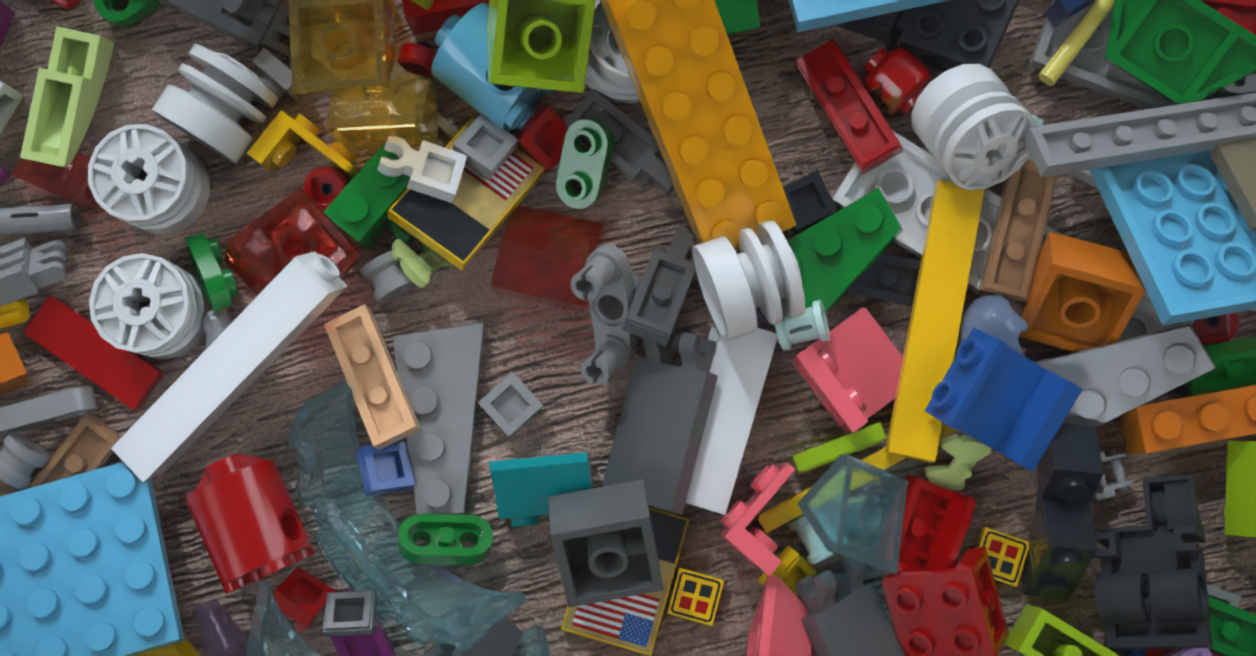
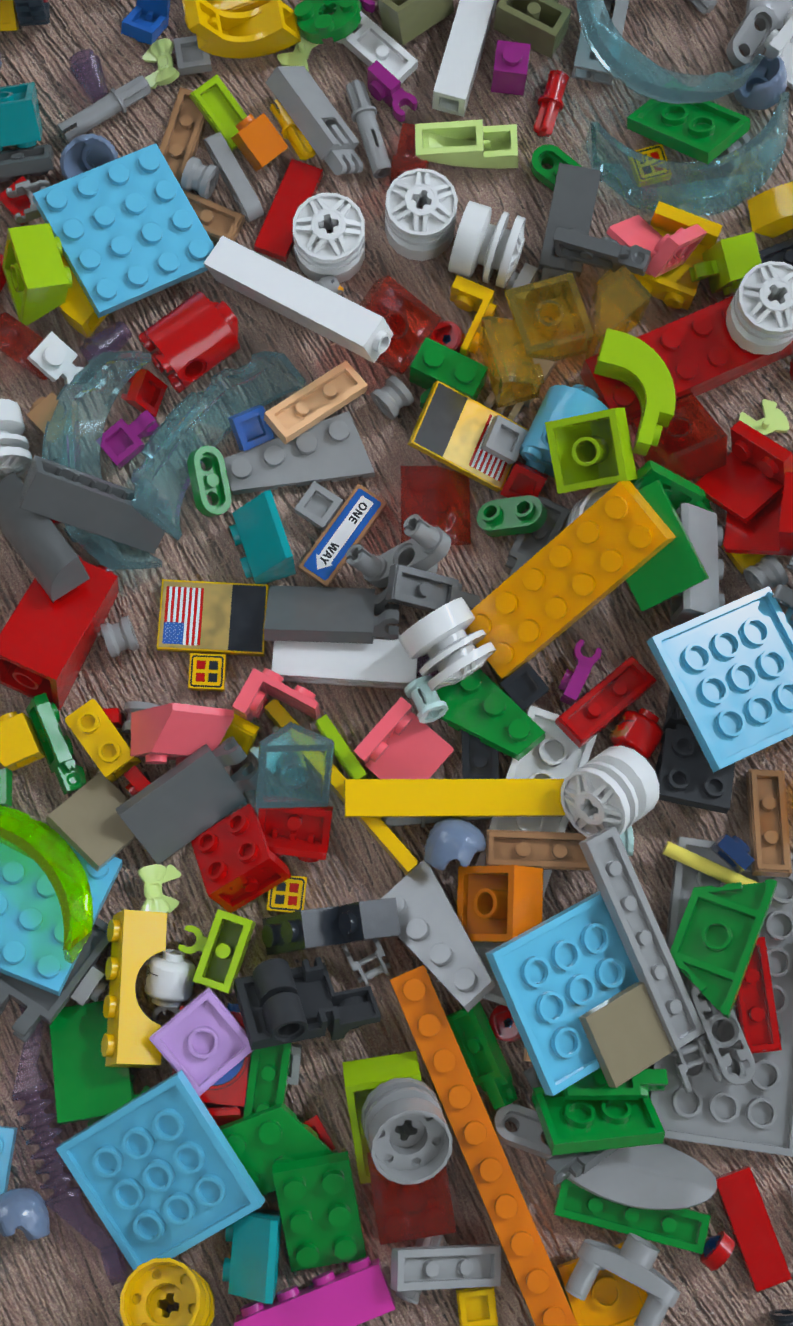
camera: 70 degrees right, 5 degrees down
(206, 258) = (357, 277): green plate -> none
(350, 613) = (141, 425): dark grey slope -> none
(417, 58) = (560, 375): red tile -> none
(418, 267) = (403, 412): yellowish green piece -> none
(431, 169) = (475, 403): white plate -> none
(556, 382) = (344, 530): none -> tile
(605, 543) = (230, 588): dark grey brick -> none
(812, 136) = (574, 680): none -> magenta plate
(966, 454) = (359, 847): yellowish green piece -> none
(1002, 399) = (404, 854): blue panel -> none

